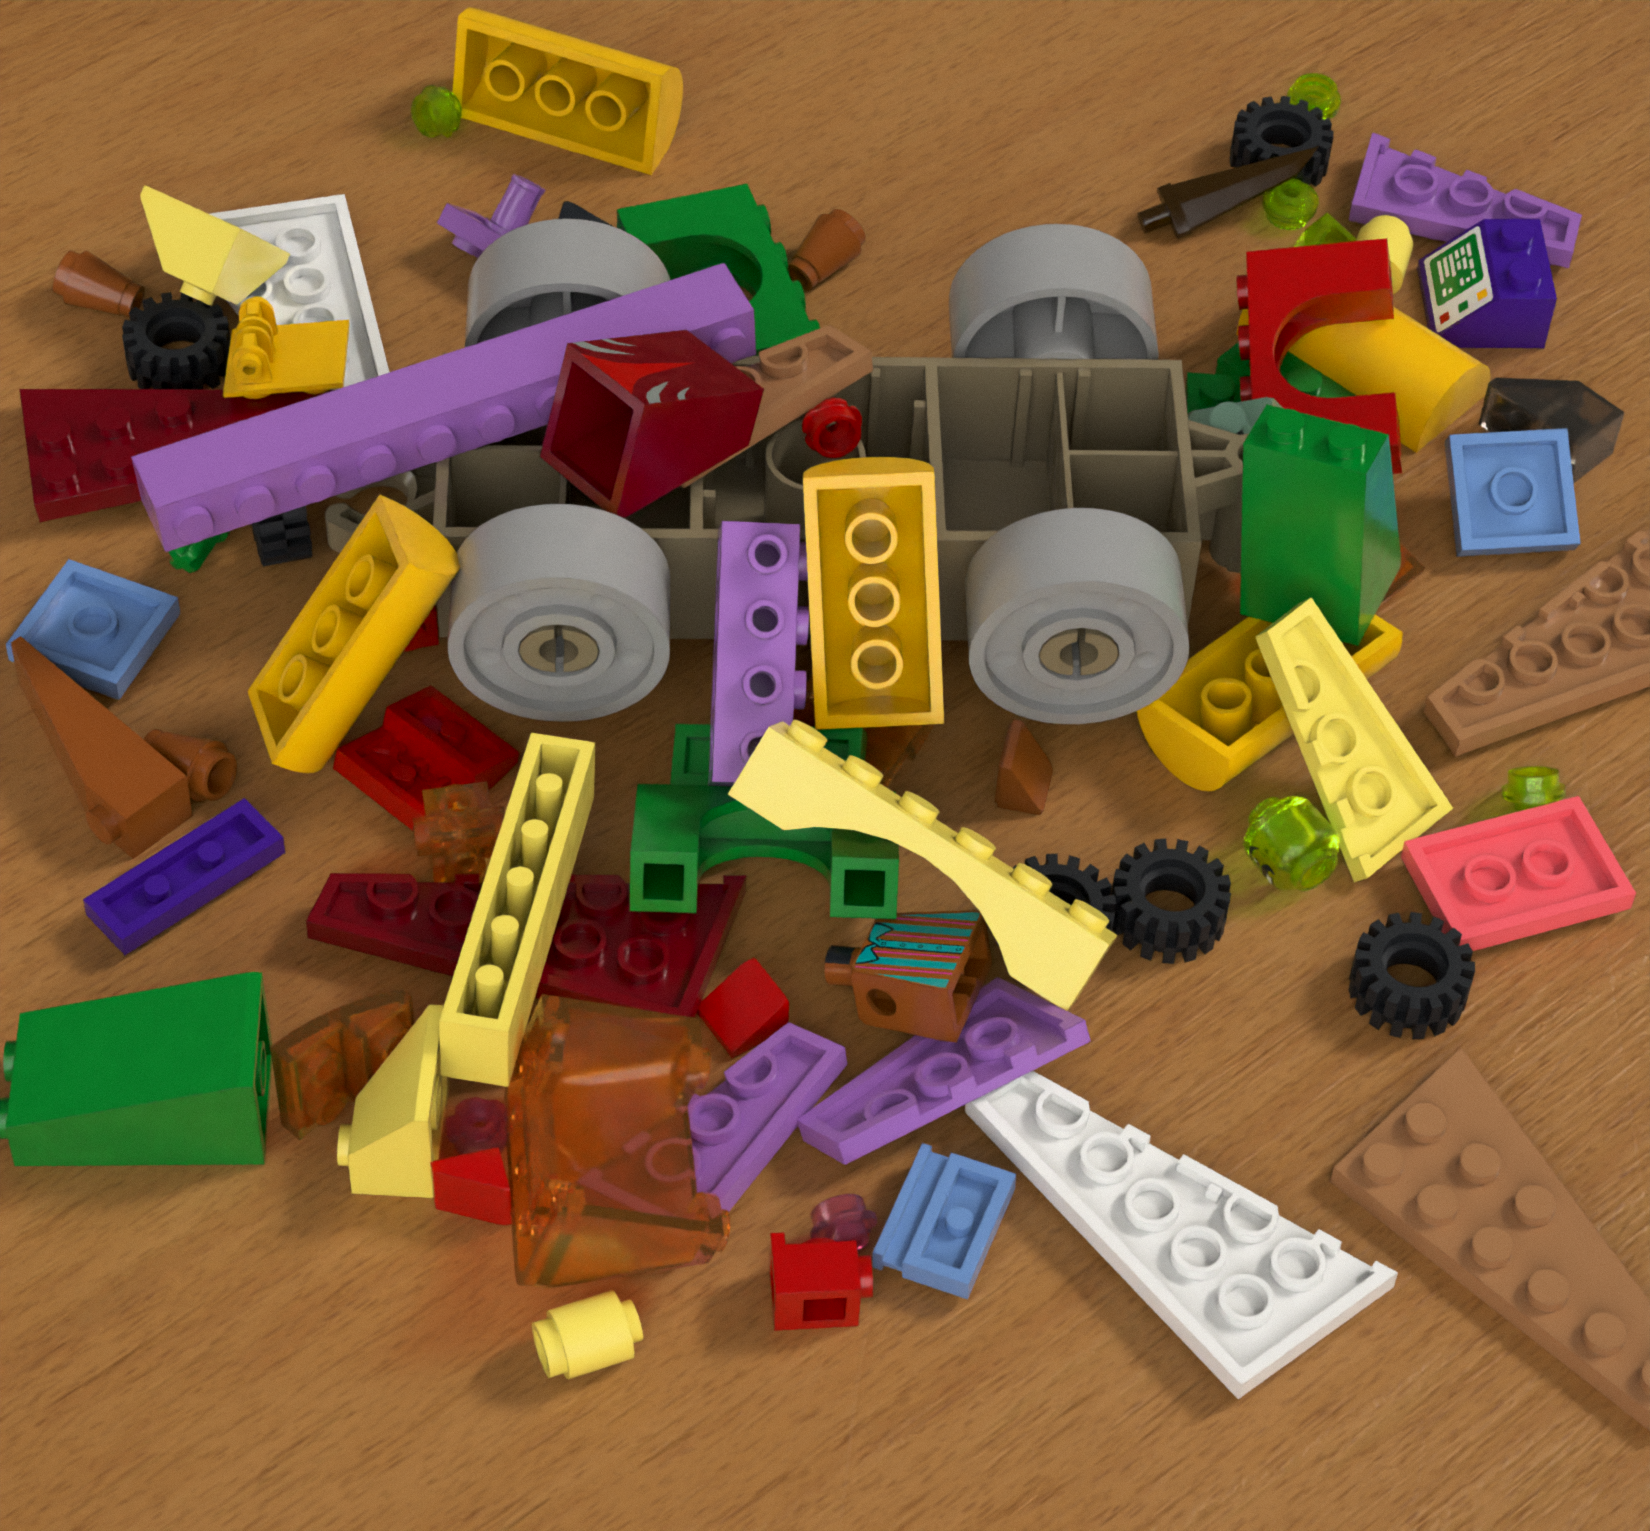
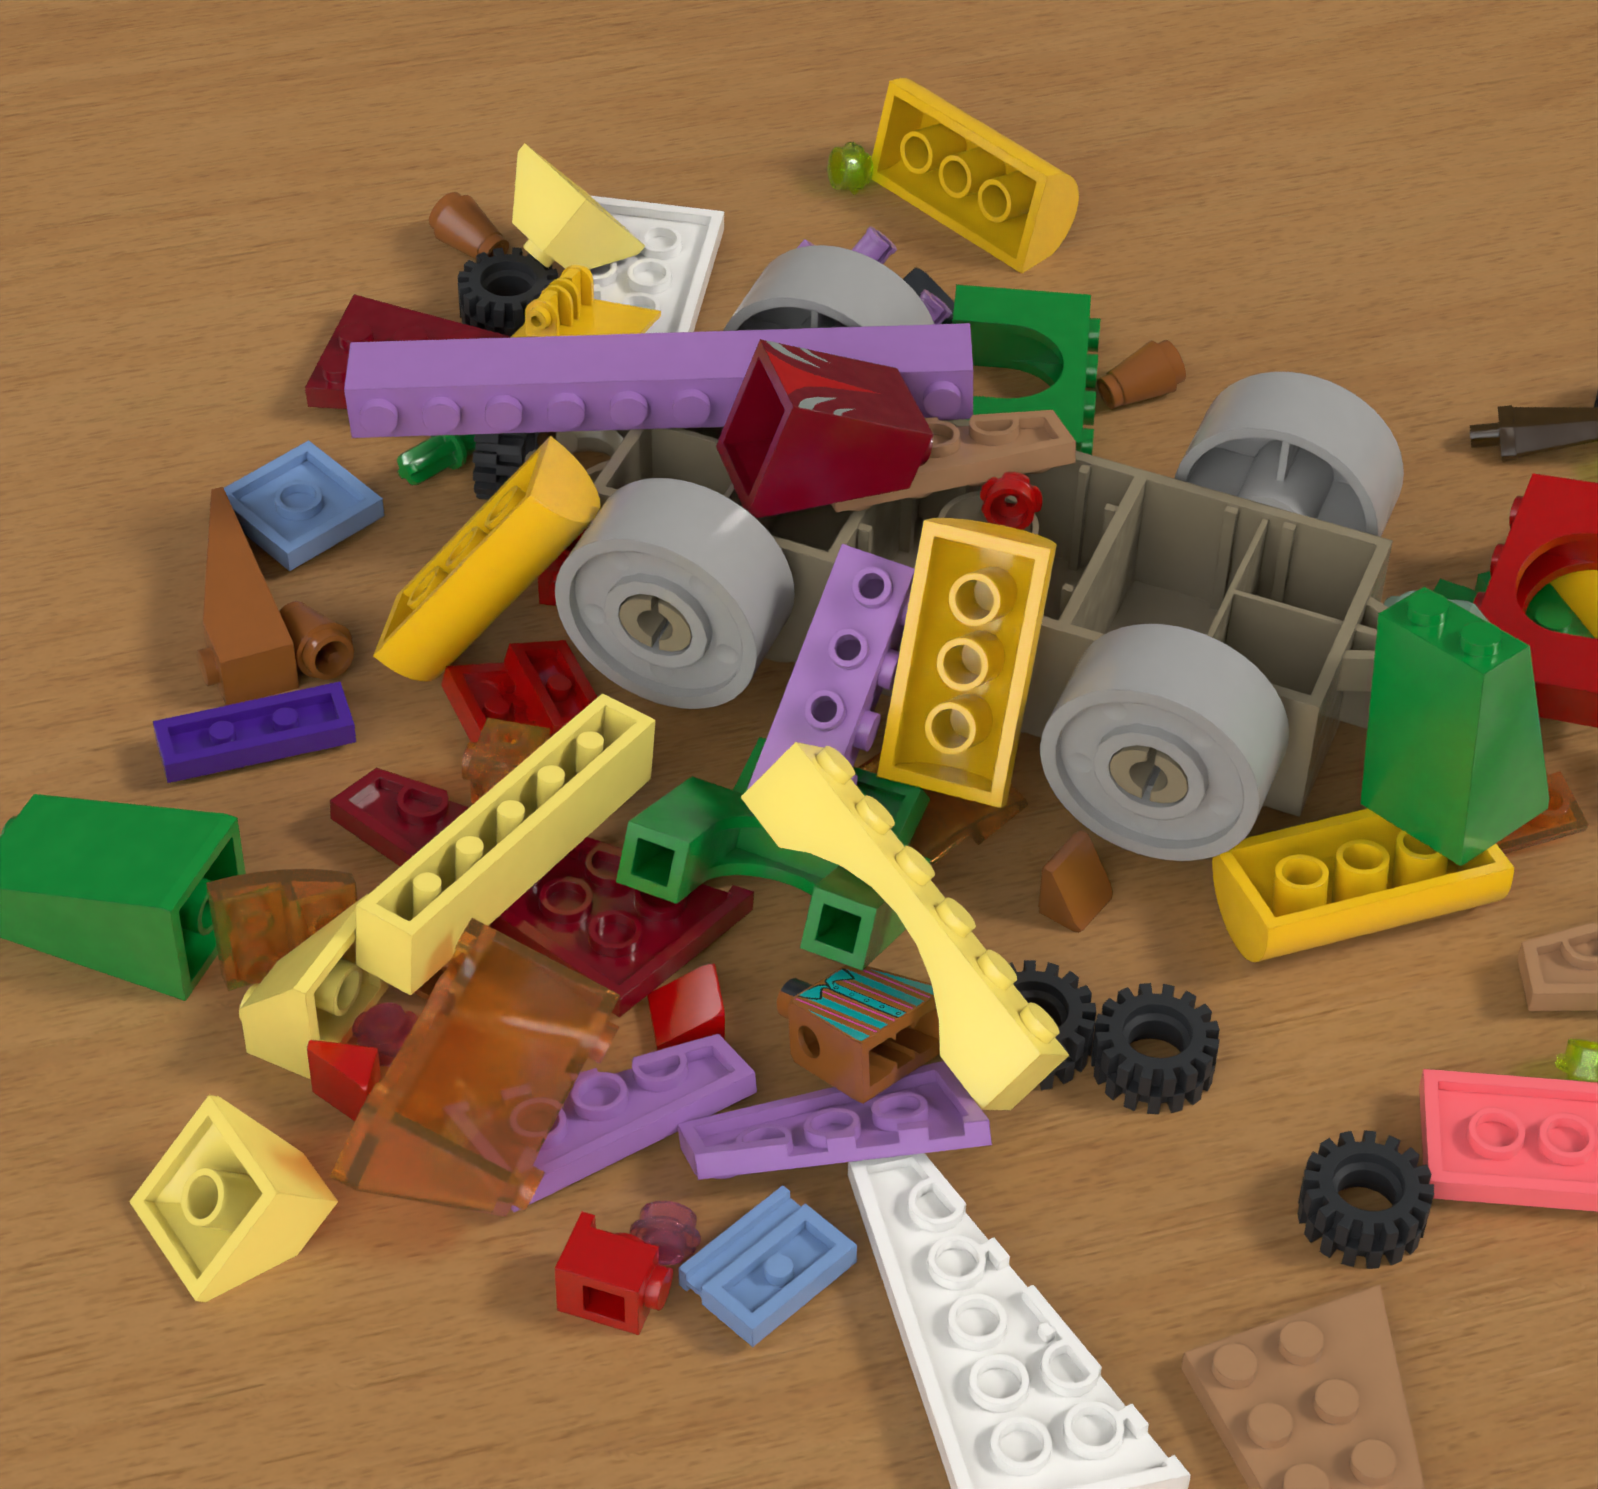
camera: 25 degrees right, 5 degrees down
(431, 1341) = (230, 1200): none -> light yellow slope
(587, 1335) = (371, 1246): light yellow brick -> none
(1291, 843) = (1305, 1033): clear neon green head -> none
(1353, 748) = (1406, 960): light yellow wing -> none

